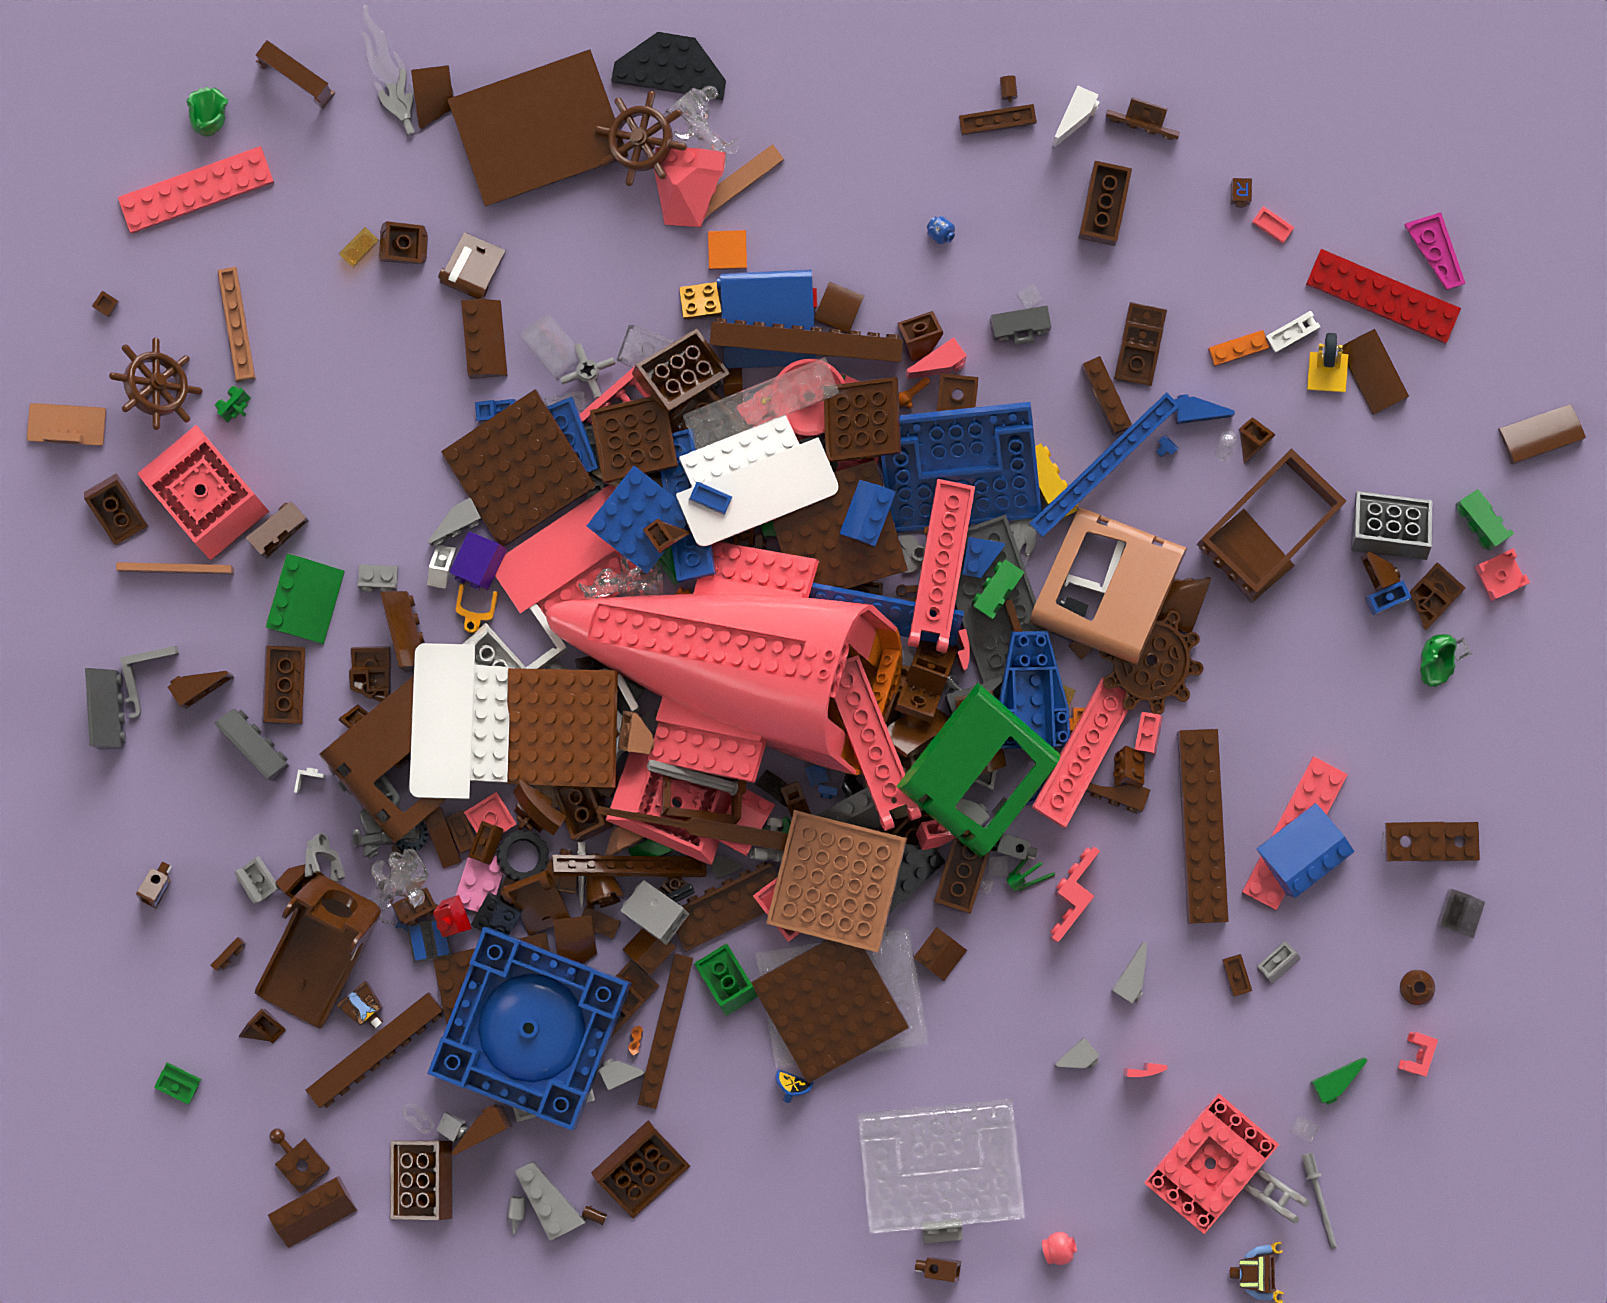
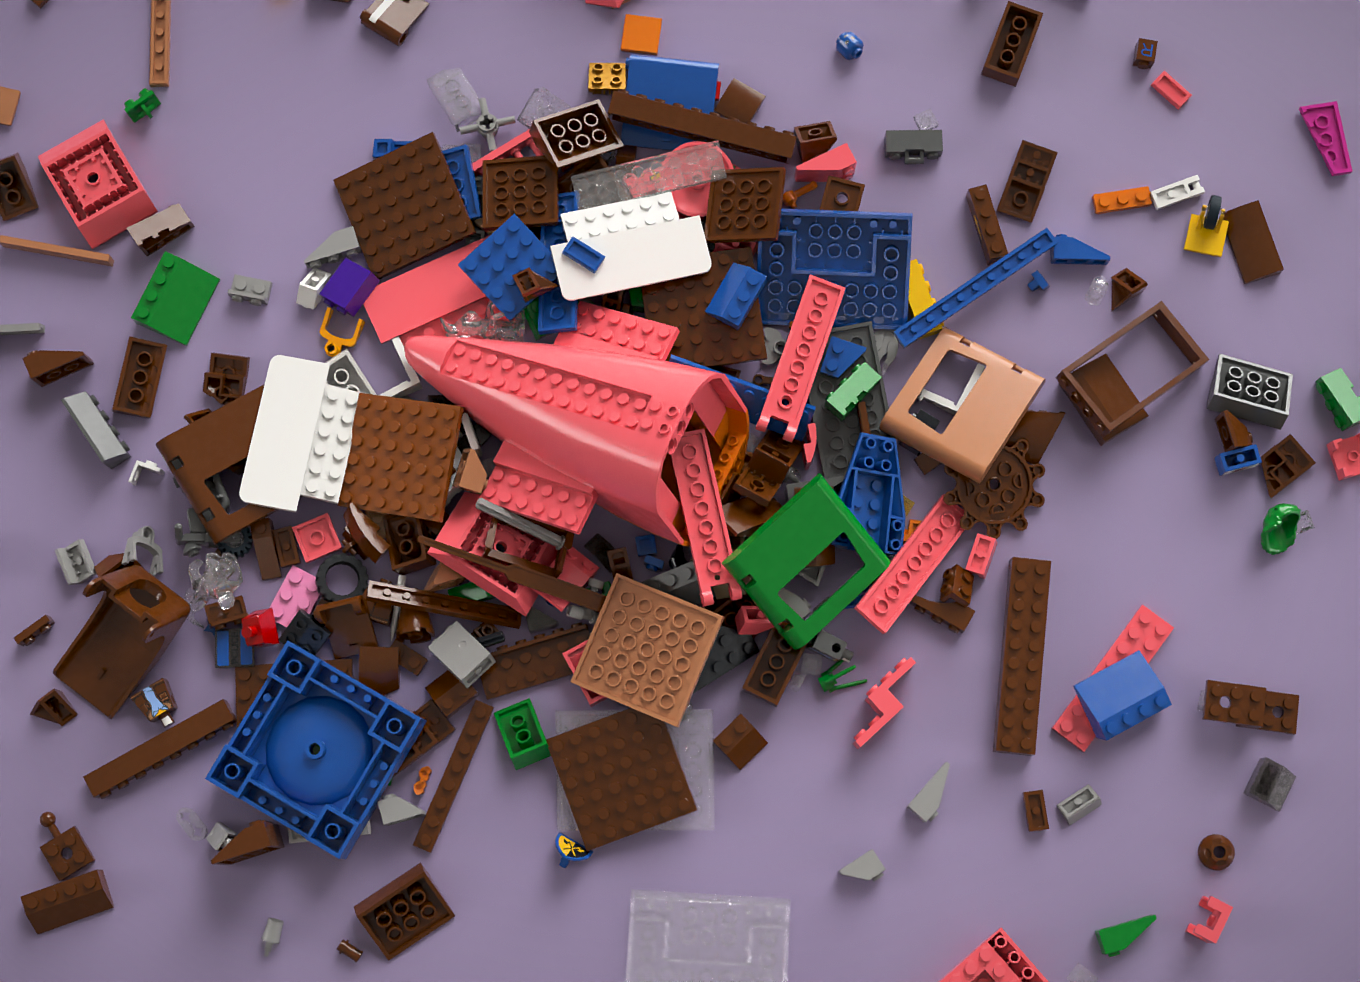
camera: 10 degrees right, 5 degrees down
(155, 383) = (69, 72): reddish brown piece -> none
(402, 626) = (263, 336): reddish brown slope -> none
(421, 1180) = (182, 887): reddish brown slope -> none
(484, 338) = (393, 80): reddish brown slope -> none
(486, 842) = (308, 560): reddish brown slope -> none
(550, 1205) = (305, 929): light grey wedge -> none
(1149, 1069) = (933, 891): coral slope -> none
(1383, 296) = (1270, 172): red plate -> none

